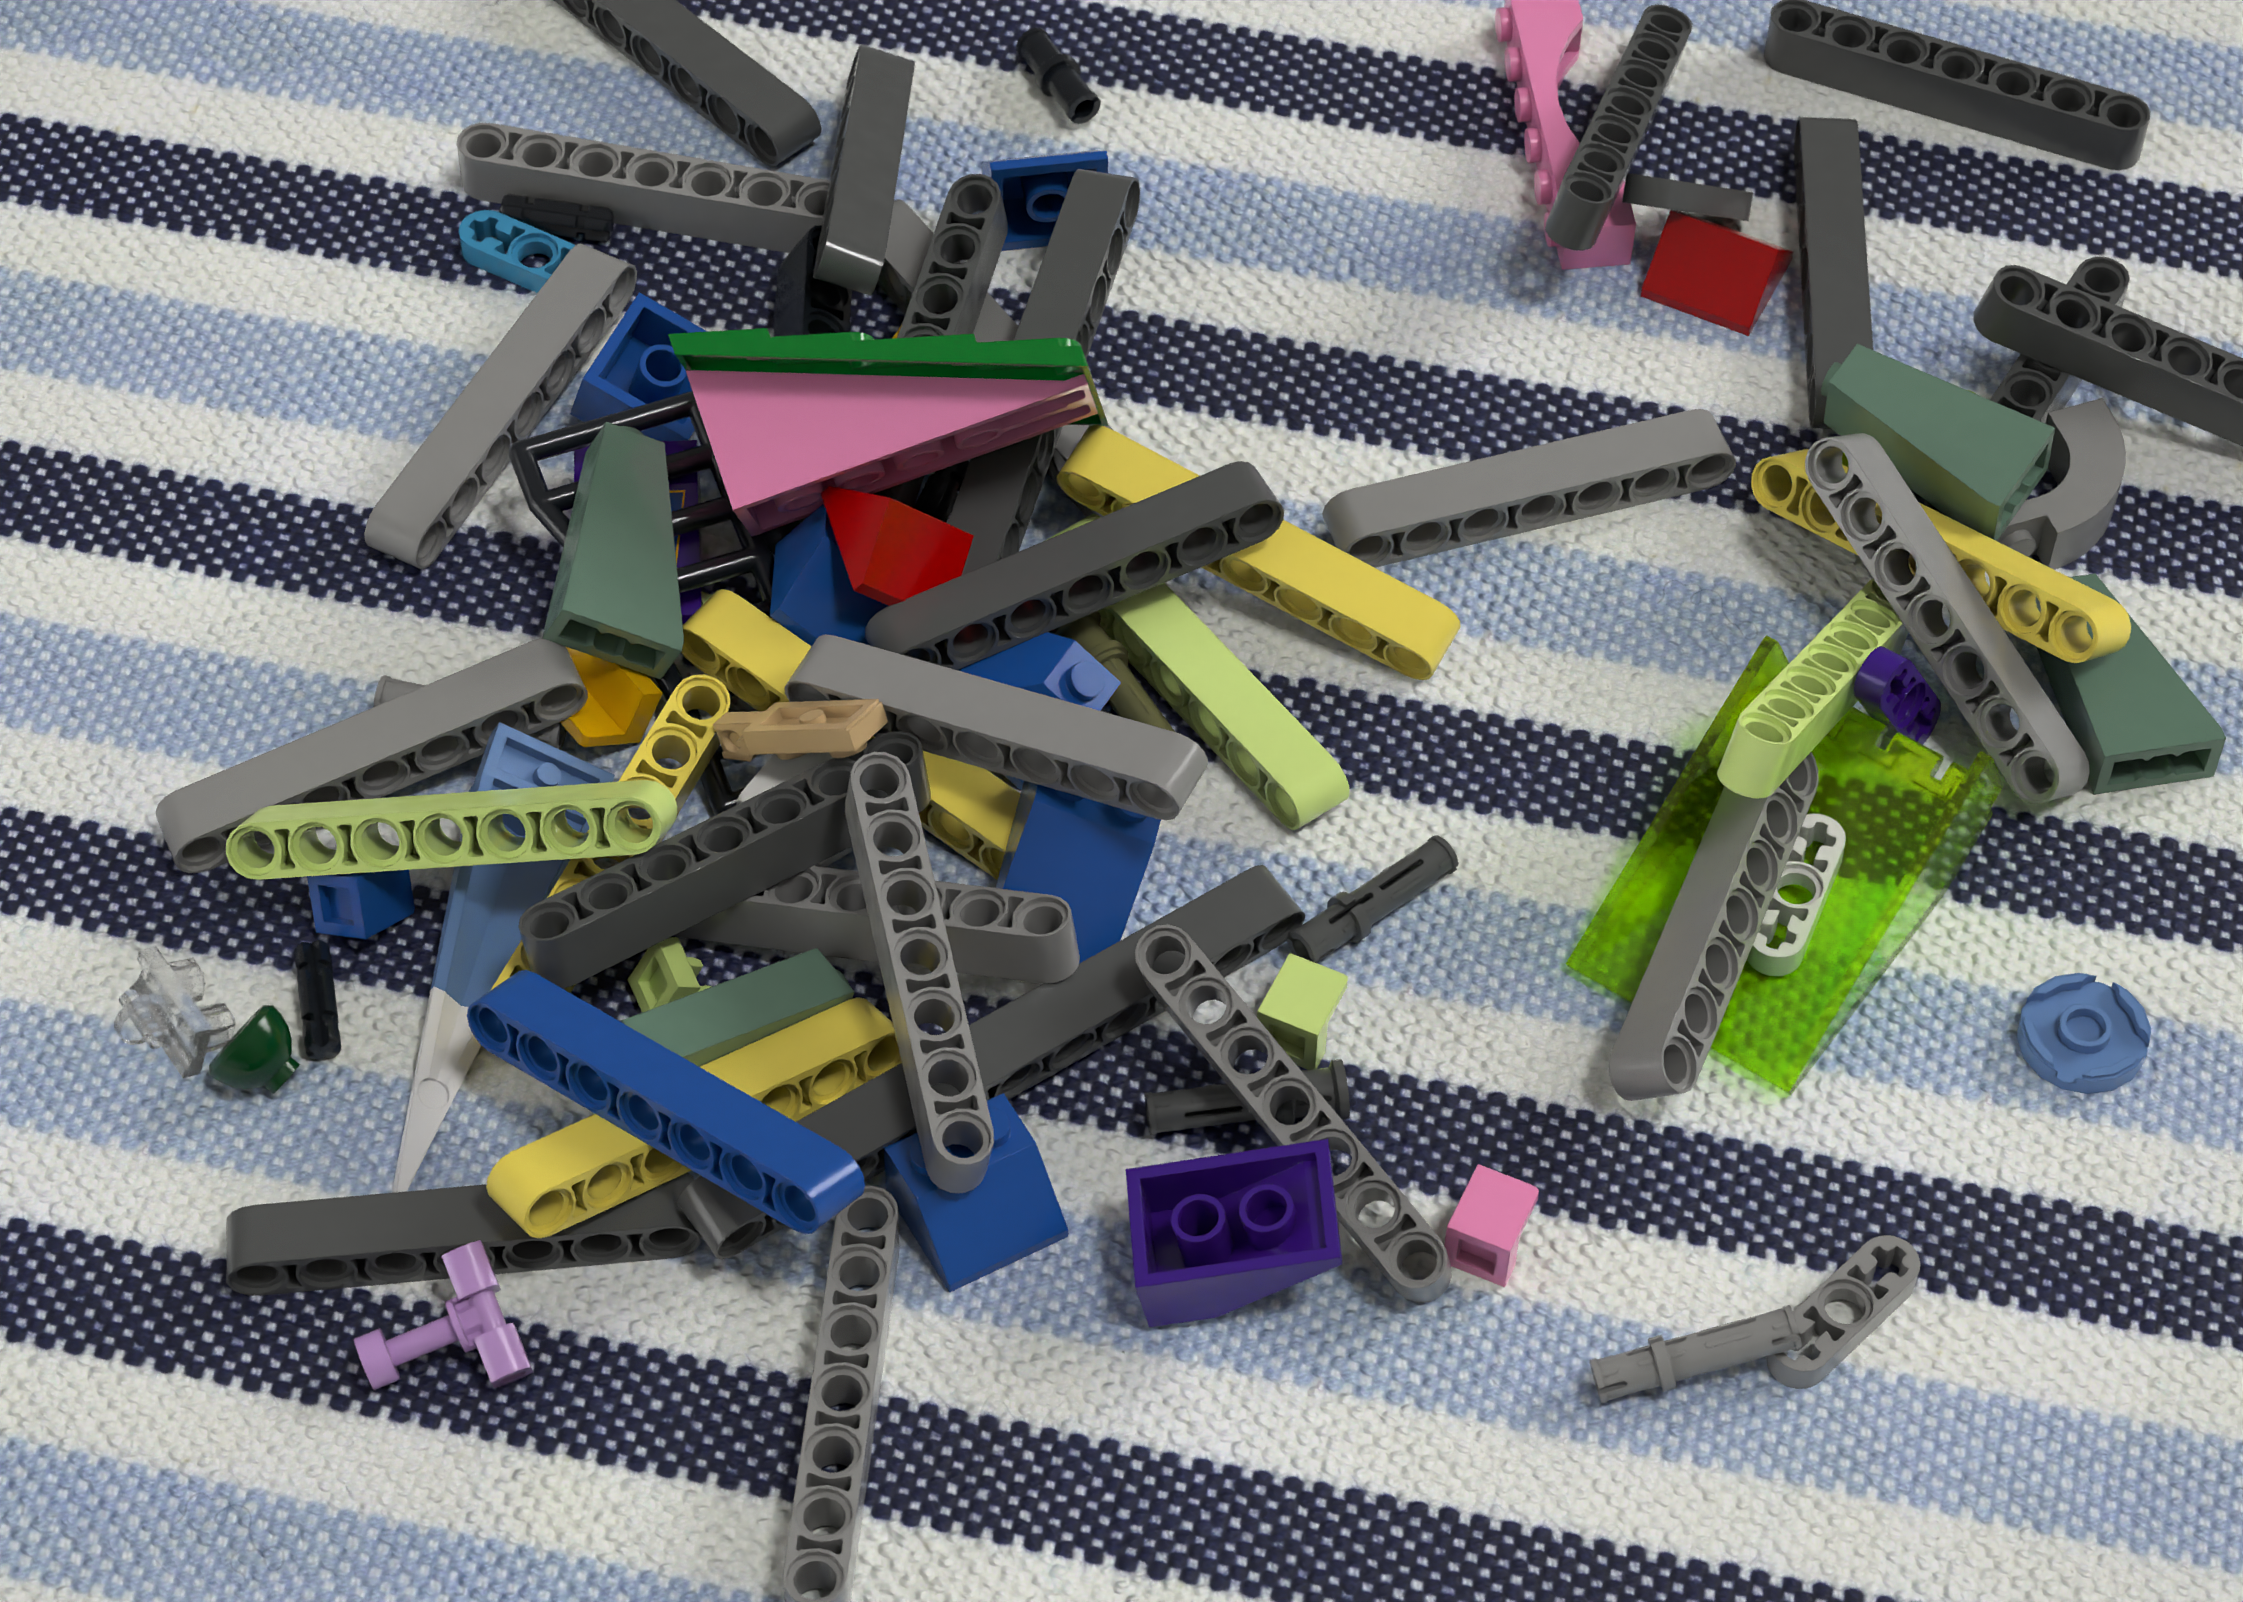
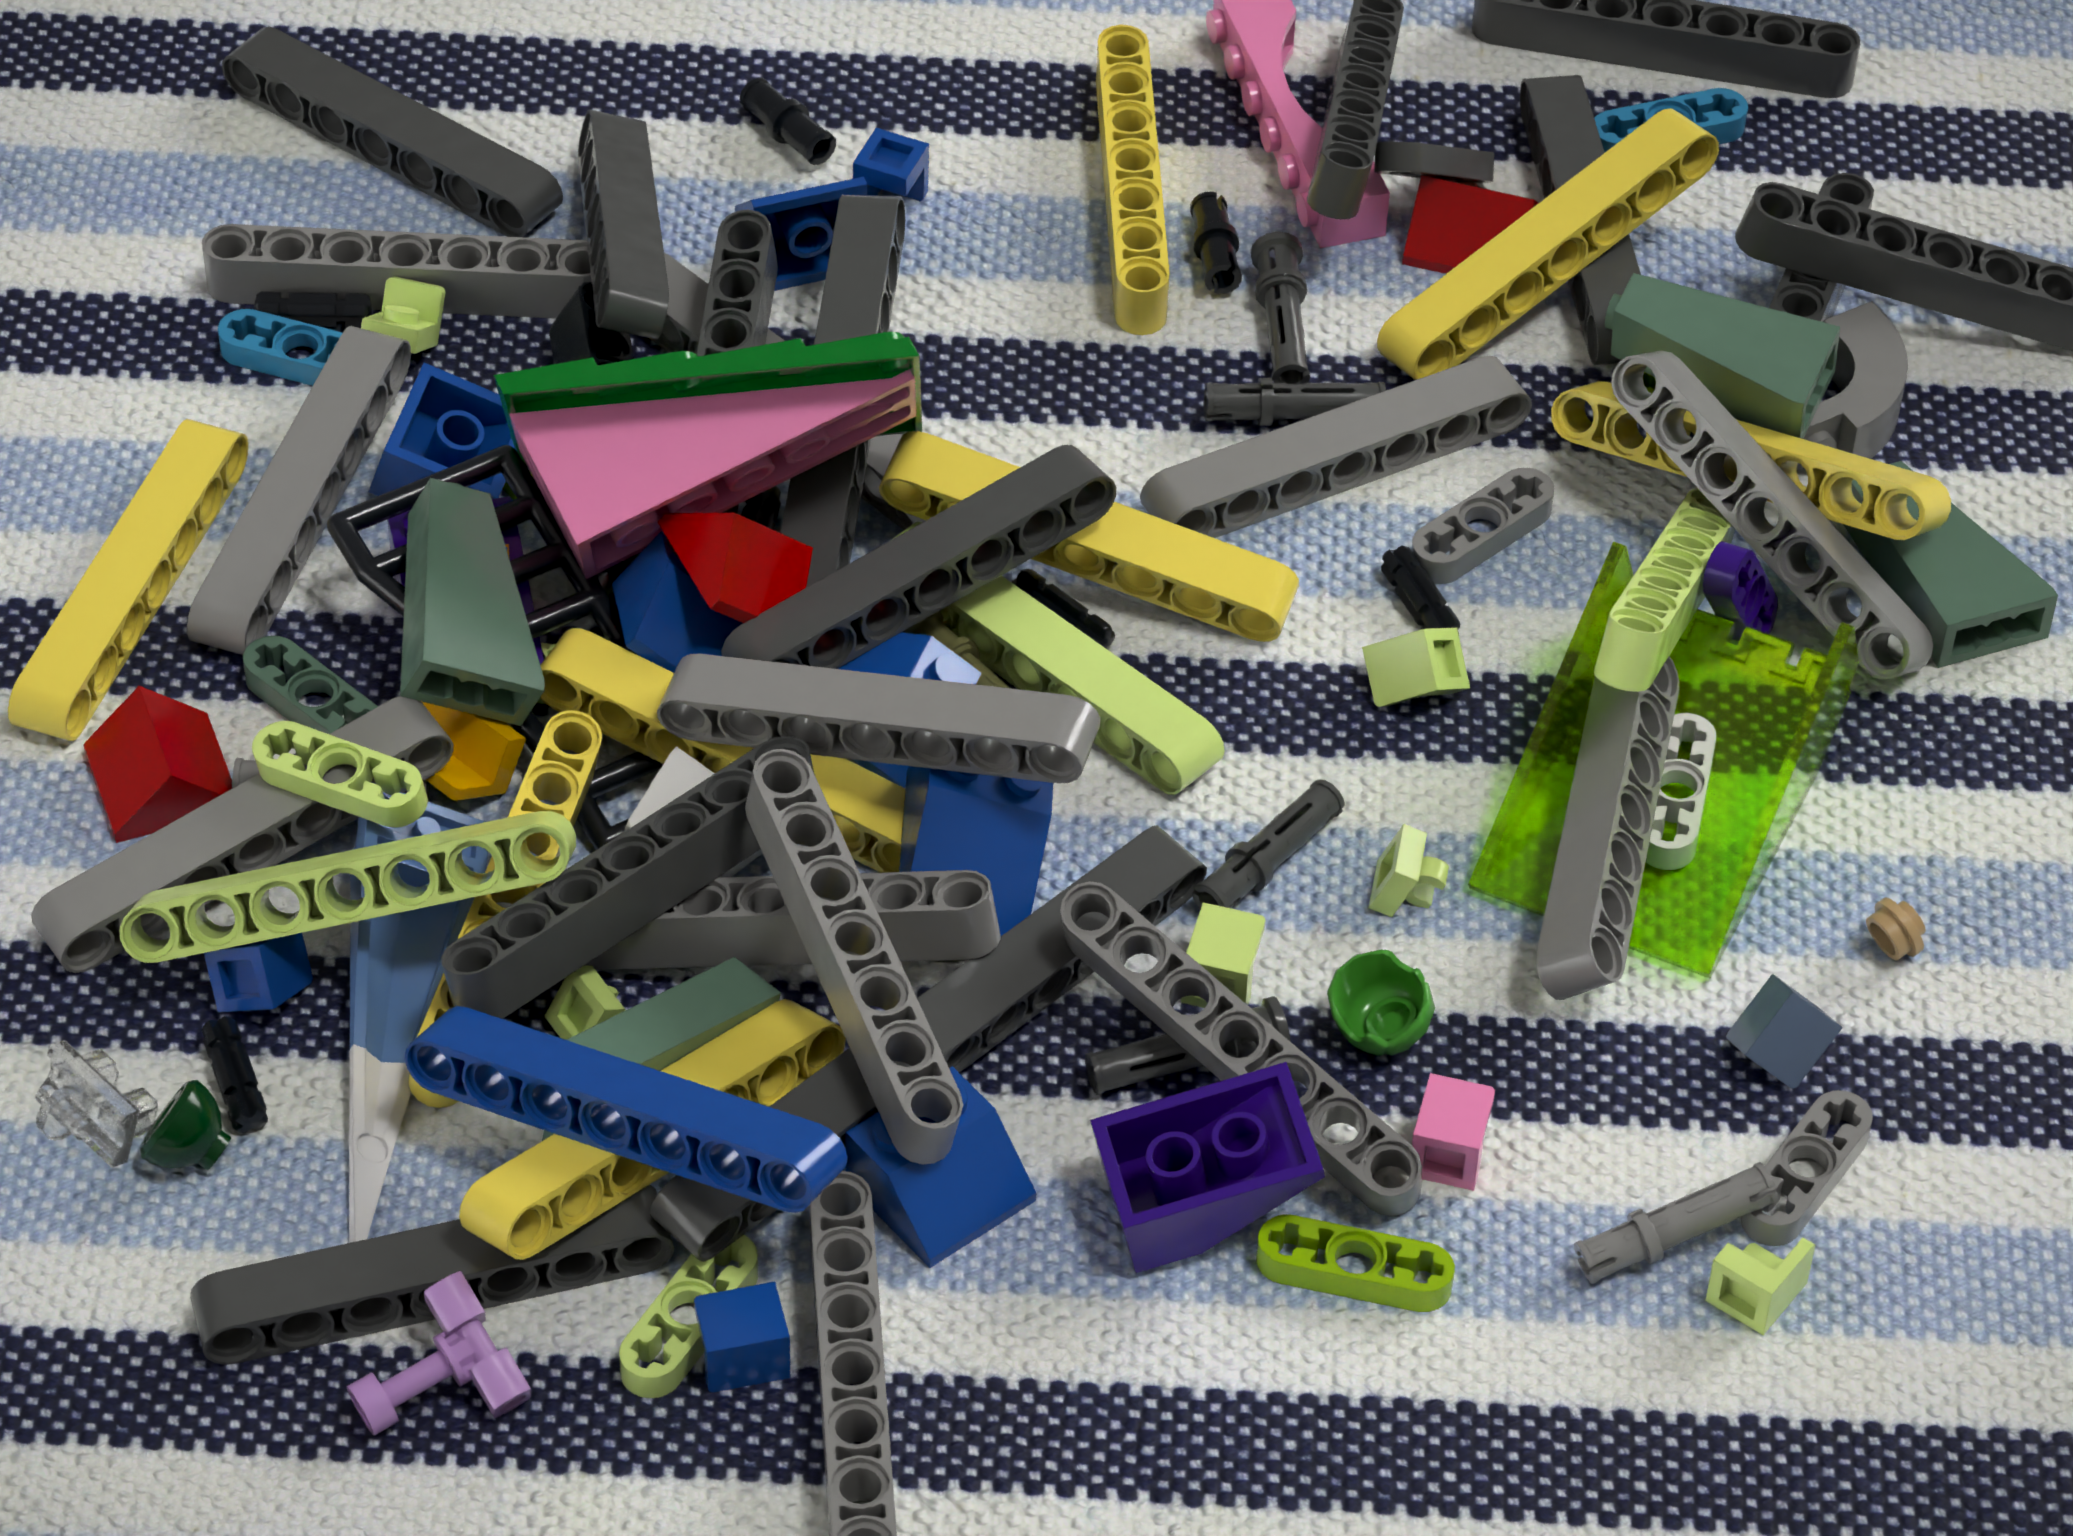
camera: 10 degrees left, 5 degrees down
(309, 669) = (154, 763): none -> red slope
(320, 477) = (128, 581): none -> light yellow beam
(469, 598) = (303, 677): none -> sand green beam
(477, 735) = (354, 796): none -> yellowish green beam
(645, 236) = (409, 312): none -> yellowish green bracket
(697, 1337) = (684, 1341): none -> yellowish green beam
(745, 1342) = (743, 1337): none -> blue panel
(801, 728) = (681, 746): tan hinge -> none
(1145, 136) = (894, 165): none -> blue panel
(1222, 622) = (1065, 606): none -> black axle
(1380, 1374) = (1371, 1286): none -> lime beam
(1384, 178) = (1132, 180): none -> light yellow beam
(1446, 1080) = (1380, 1003): none -> bright green hair
(1455, 253) = (1215, 242): none -> black pin
(1487, 429) = (1280, 401): none -> dark grey pin
(1503, 946) = (1406, 874): none -> yellowish green tile
(1509, 314) = (1281, 292): none -> dark grey pin
(1560, 728) = (1416, 666): none -> yellowish green panel
(1582, 652) = (1417, 590): none -> black axle
(1648, 607) = (1490, 503): none -> light grey beam
(1767, 1426) = (1757, 1283): none -> yellowish green panel
(1783, 299) = (1548, 245): none -> light yellow beam
(1848, 1165) = (1783, 1032): none -> sand blue panel
(1988, 1070) = (1896, 928): none -> tan plate
(1992, 181) = (1715, 110): none -> dark azure beam
(2083, 1033) = (1978, 885): medium blue tile -> none

